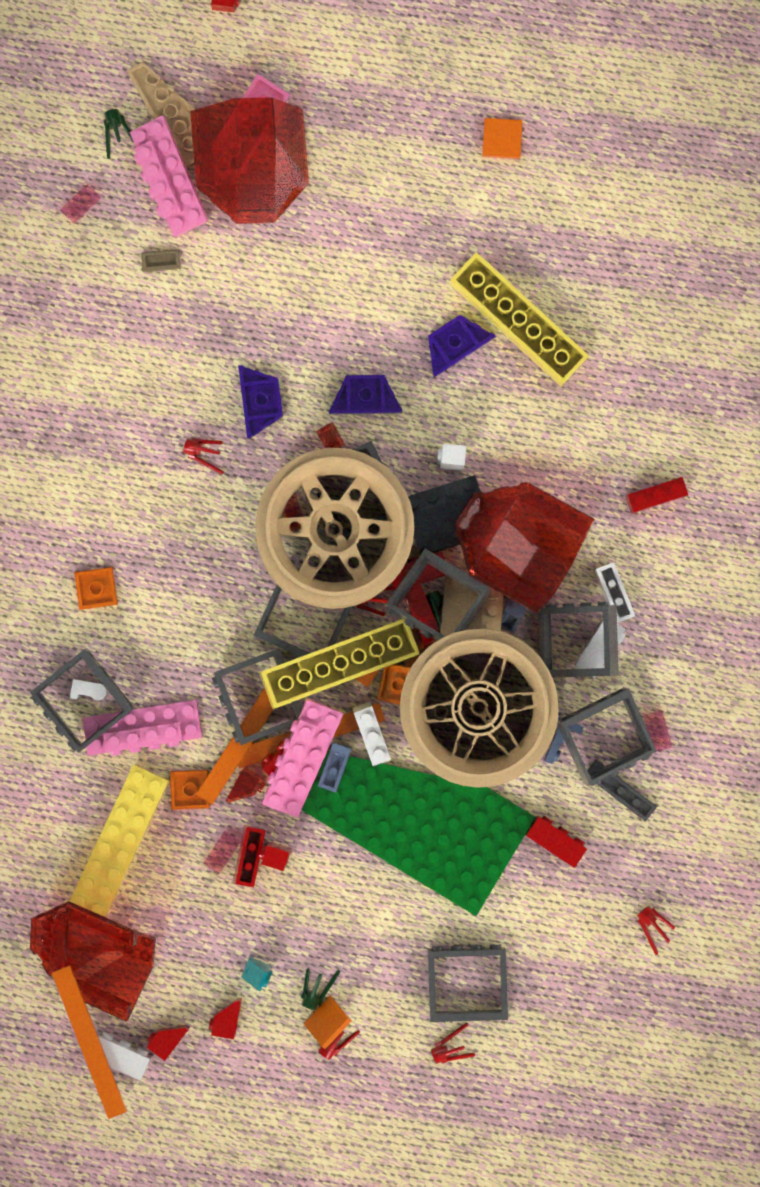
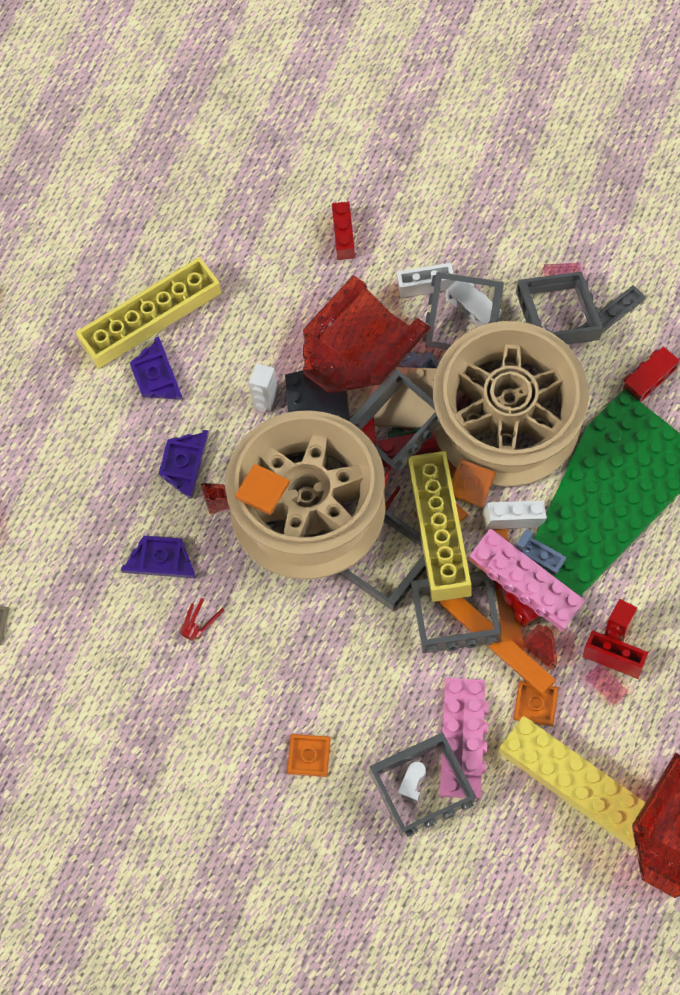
camera: 75 degrees left, 20 degrees down
(311, 488) = (262, 489): none -> orange tile

